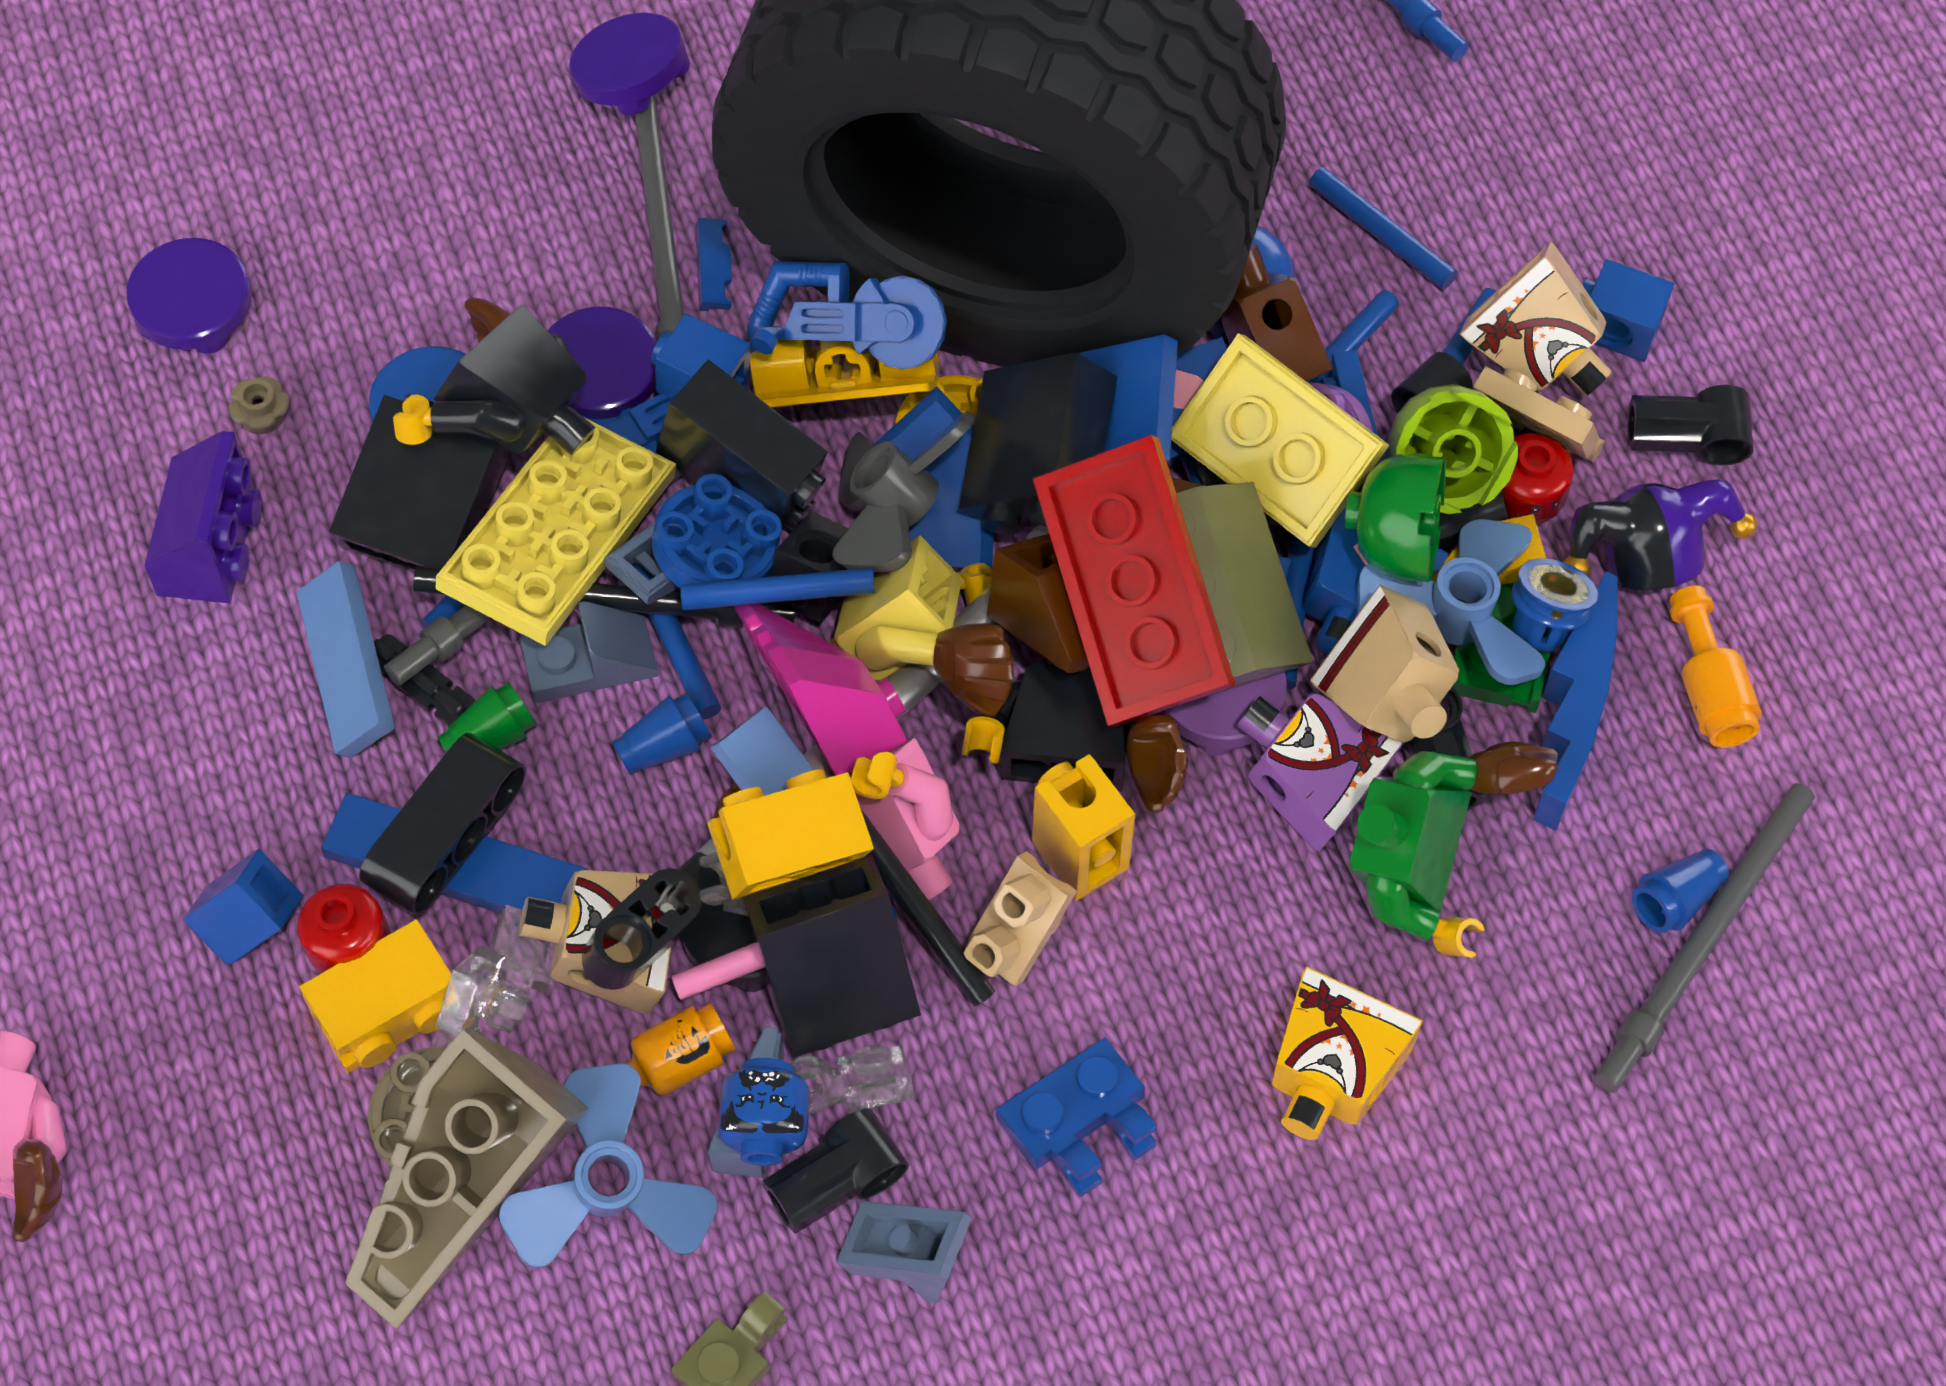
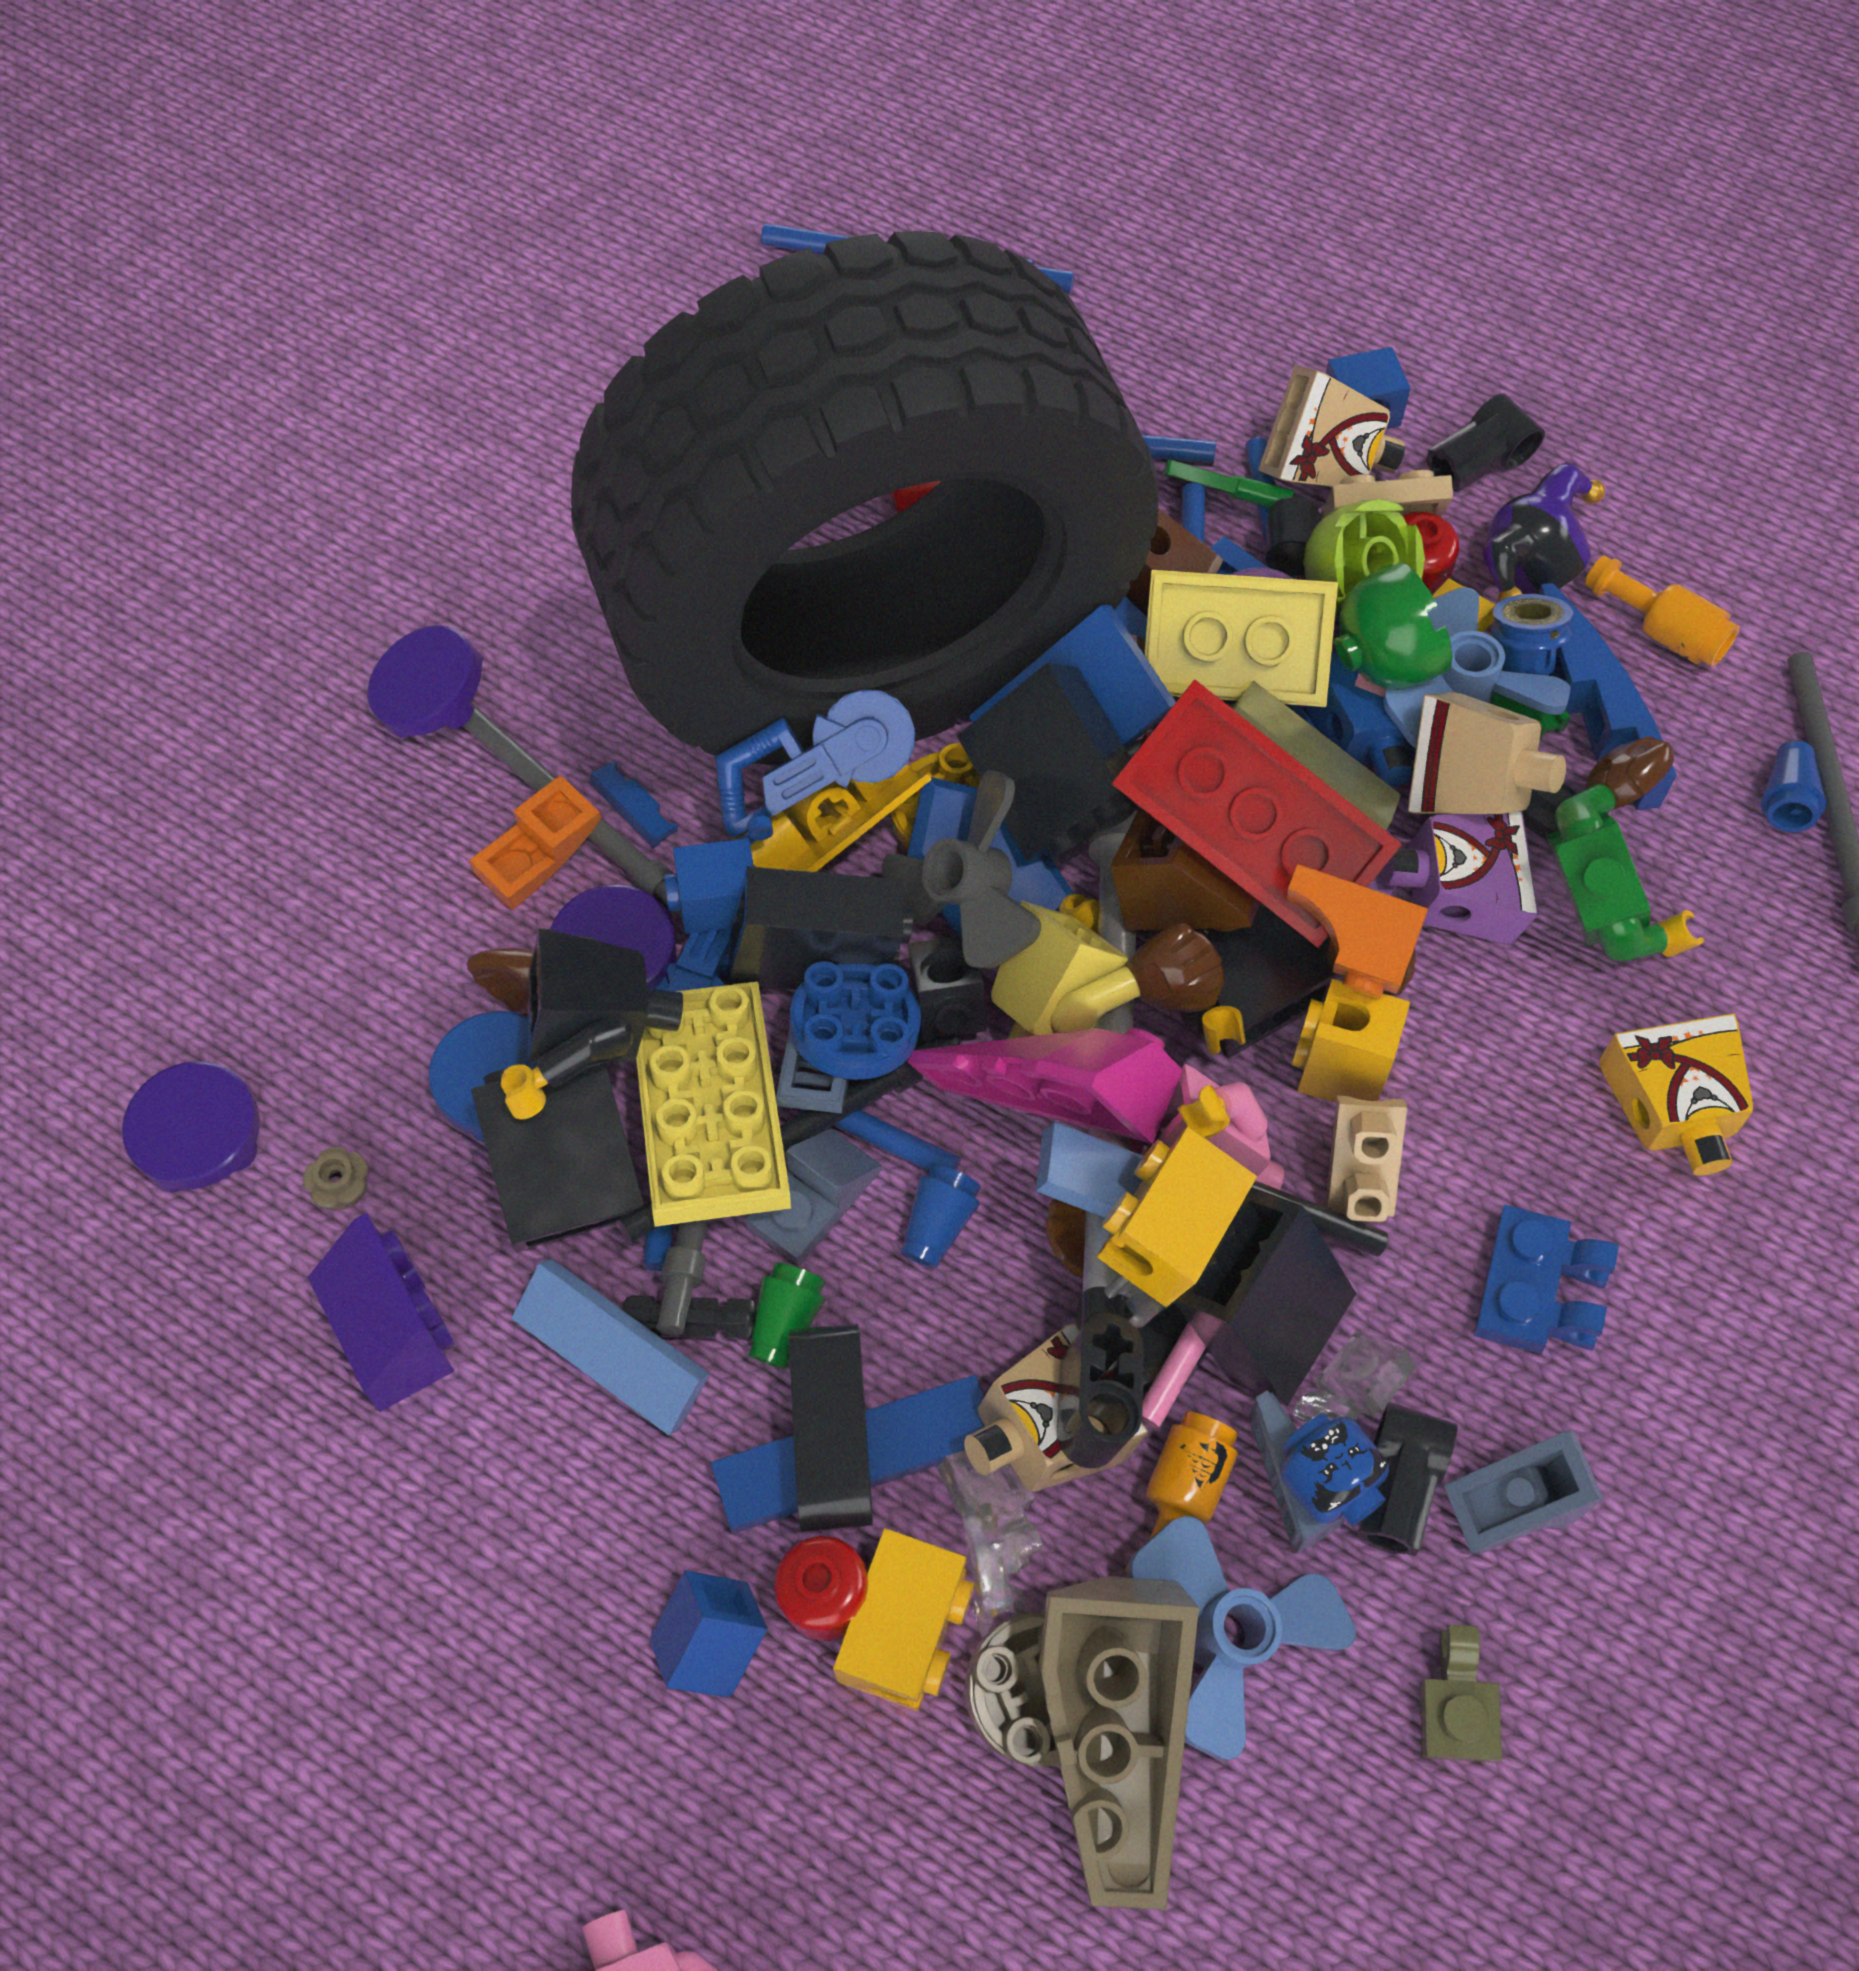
camera: 35 degrees left, 0 degrees up
(605, 250) = (545, 837): none -> orange slope
(777, 589) = (950, 1023): blue bar -> none
(1132, 733) = (1368, 929): none -> orange arch
(1423, 311) = (1236, 486): none -> green piece

